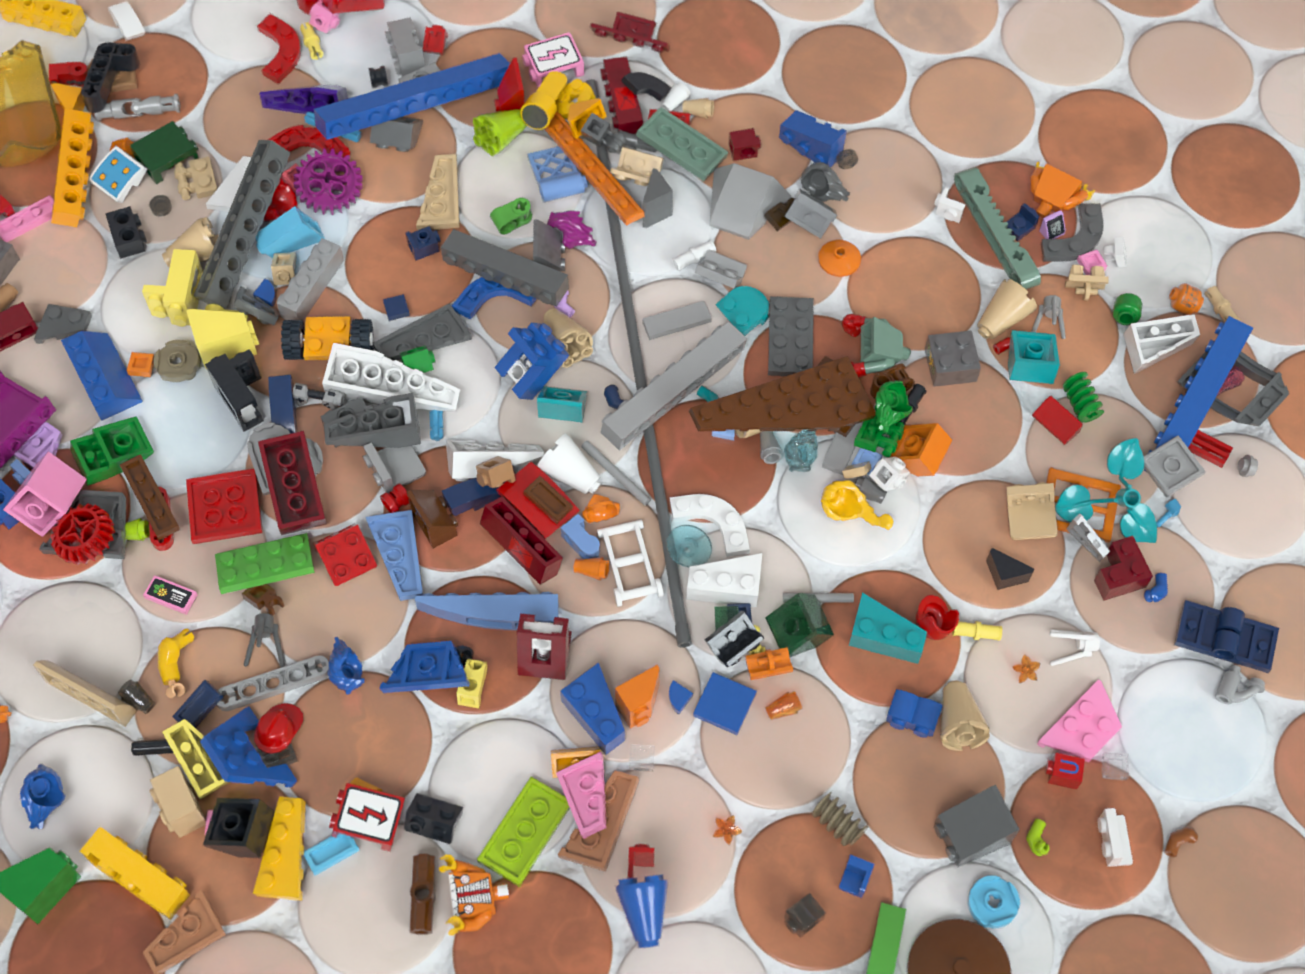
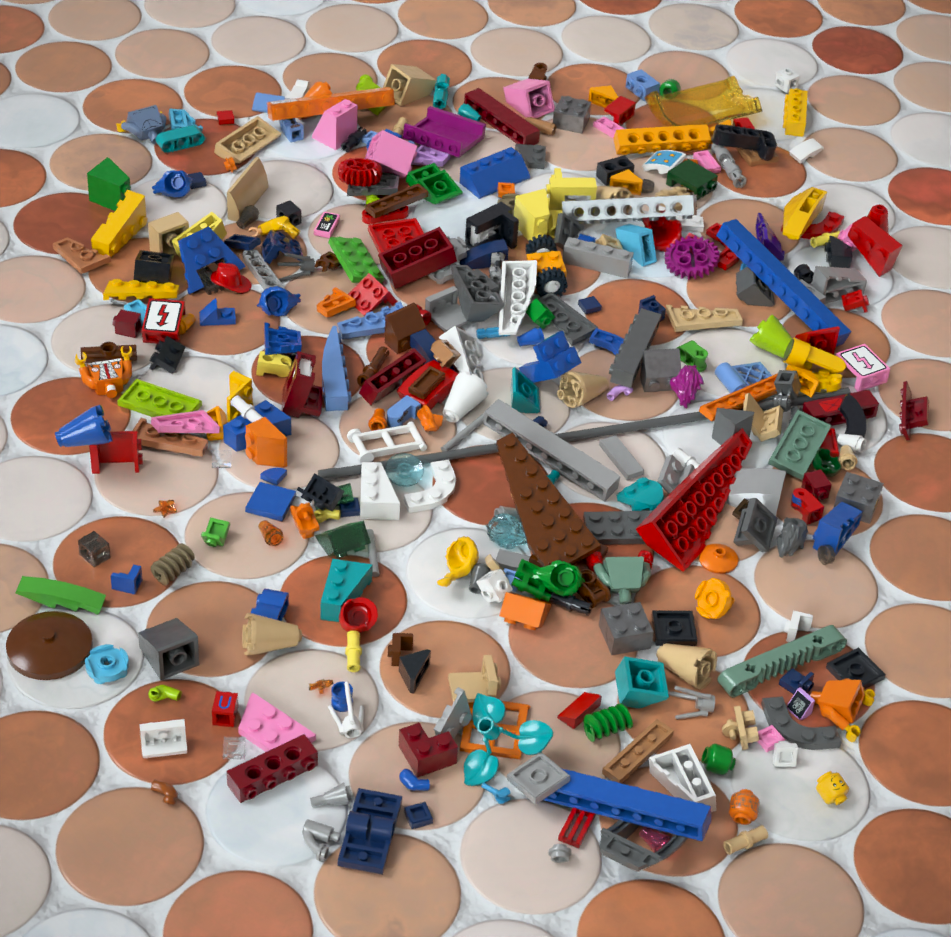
camera: 80 degrees right, 20 degrees down
(22, 764) = (199, 180): none -> dark blue tile
(122, 129) = (707, 161): none -> bright pink tile
(144, 640) = (290, 210): none -> black brick
(156, 223) = (627, 180): none -> light orange slope
(223, 656) = (278, 242): none -> dark blue bracket
(270, 49) = (802, 211): none -> yellow wedge
(344, 35) = (838, 253): none -> black slope
(350, 597) = (335, 303): none -> orange wing
(352, 750) = (216, 316): none -> blue slope
(359, 868) = (127, 323): none -> dark red brick
(455, 375) = (531, 337): none -> blue cone
(497, 567) = (374, 366): none -> reddish brown pin
(546, 715) = (240, 386): none -> yellow bracket
(596, 709) = (246, 410): none -> white pin
(712, 127) = (826, 463): none -> dark green hair
(765, 110) = (860, 493): none -> flat silver brick
(773, 159) = (807, 505): none -> red leg
(783, 768) = (216, 532): none -> bright green bracket
(809, 286) = (687, 514): none -> red wedge
(918, 269) = (713, 598): none -> light orange tile
(941, 315) = (674, 627): none -> black tile
(975, 585) = (400, 642): none -> reddish brown bracket
(1003, 172) = (856, 666): none -> black tile
(1050, 644) = (338, 698): none -> blue wheel
(1116, 377) = (637, 752): none -> medium nougat plate
(1136, 718) = (272, 768): none -> dark red brick
(1160, 222) = (832, 788): none -> yellow head
(1182, 663) = (337, 795): none -> light grey cone
(1199, 590) = (418, 815): none -> dark blue tile

